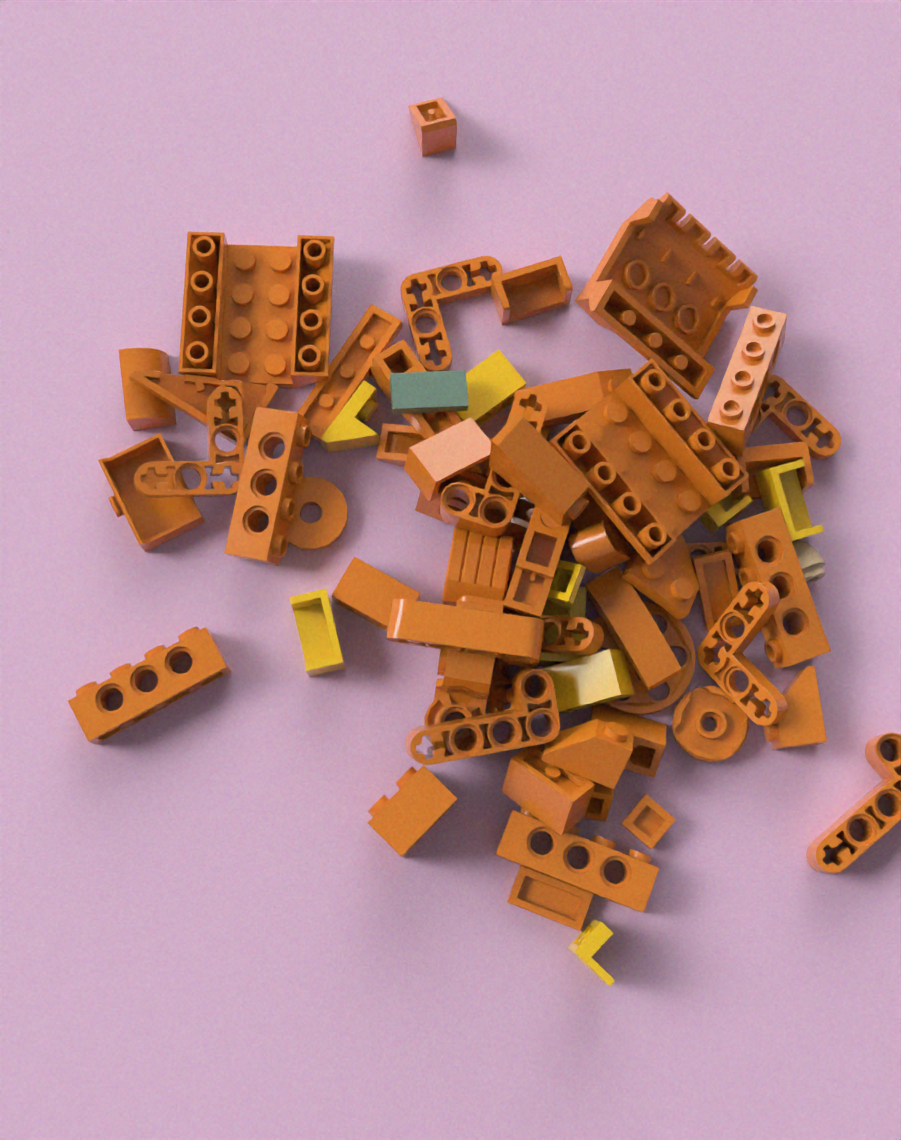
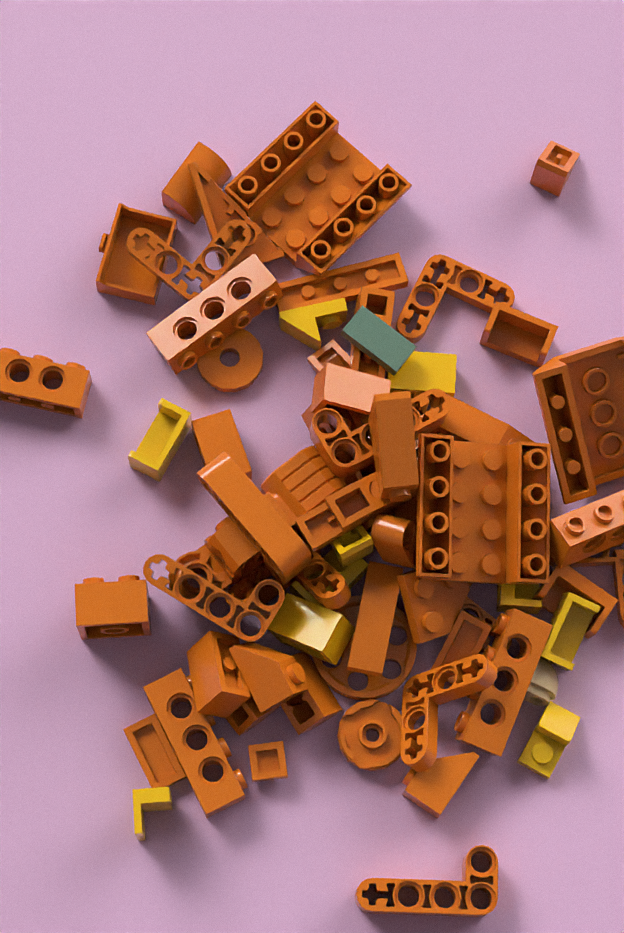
camera: 40 degrees right, 5 degrees down
(847, 602) = (548, 740): none -> yellow slope

